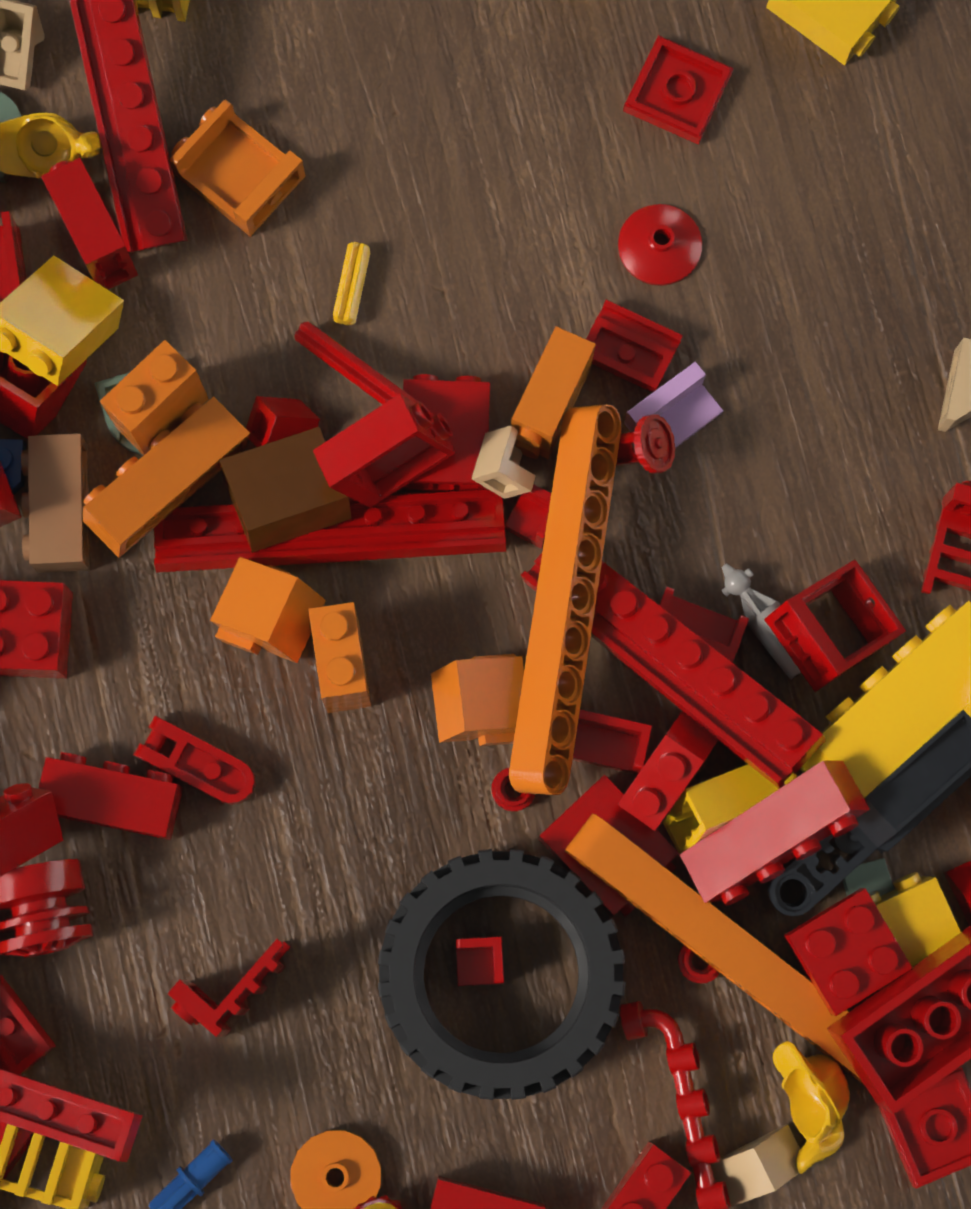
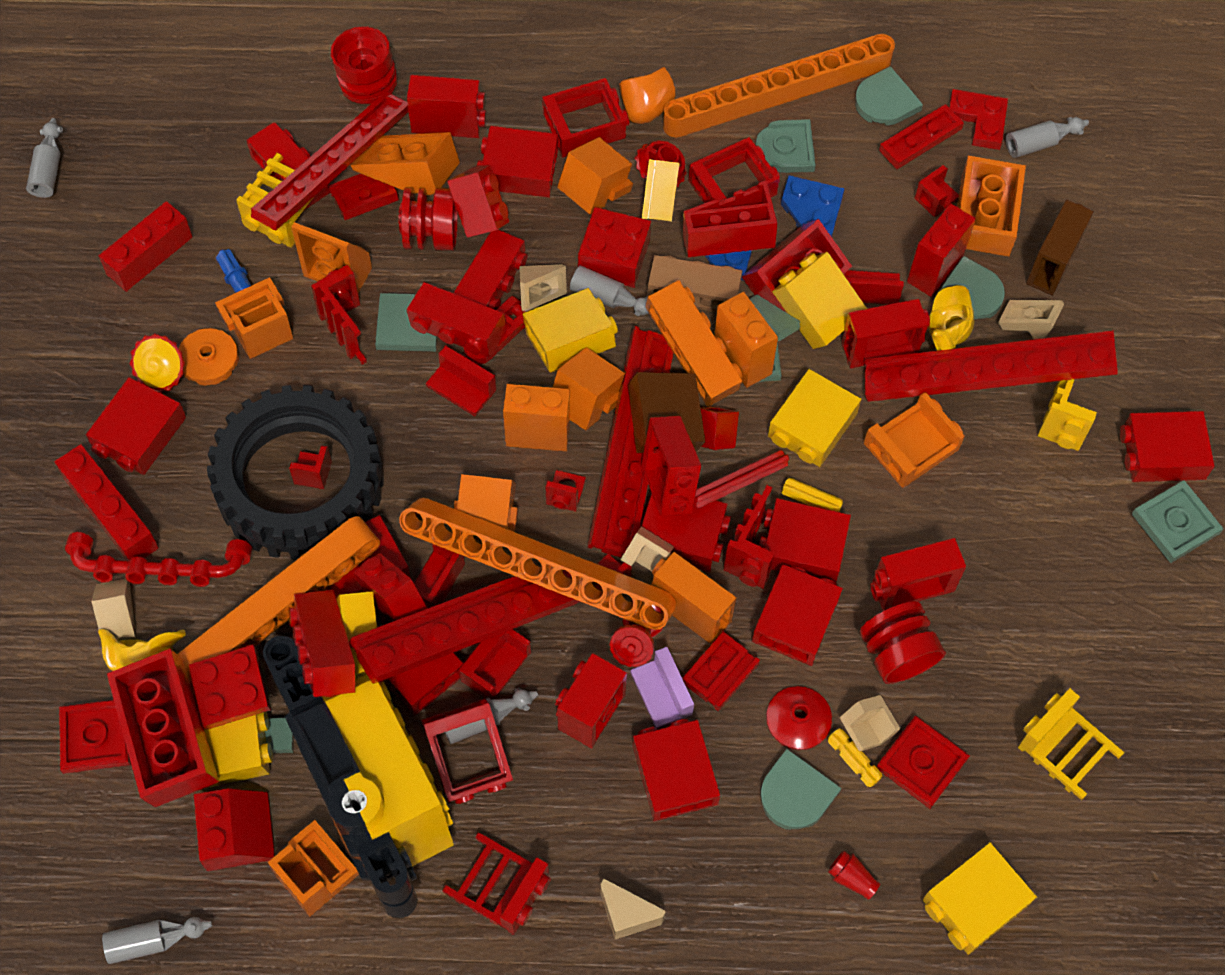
camera: 105 degrees right, 15 degrees down
(95, 622) = (608, 290): none -> light grey wheel
(96, 377) = (780, 321): none -> sand green tile
(111, 721) = (541, 284): none -> tan slope
(137, 1034) = (325, 253): none -> orange slope
(177, 655) = (568, 327): none -> yellow brick
(206, 818) = (456, 320): none -> red brick
(208, 898) = (395, 329): none -> sand green tile
(237, 300) = (814, 418): none -> yellow brick
(261, 1120) = (256, 317): none -> orange plate
(292, 792) = (462, 381): none -> red panel
(422, 277) = (806, 538): none -> red brick
(440, 603) = (562, 495): none -> red bracket
(444, 123) = (918, 574): none -> red window
(464, 347) = (745, 558): none -> red plate
(527, 266) = (797, 614): none -> red brick
(544, 126) = (902, 642): none -> red wheel
(651, 154) = (870, 723): none -> tan panel
(696, 167) = (854, 758): none -> yellow axle
(727, 488) = (591, 700): none -> red brick
(761, 227) = (796, 793): none -> sand green tile
(776, 371) = (675, 769): none -> red brick
(844, 144) = (853, 875): none -> red cone

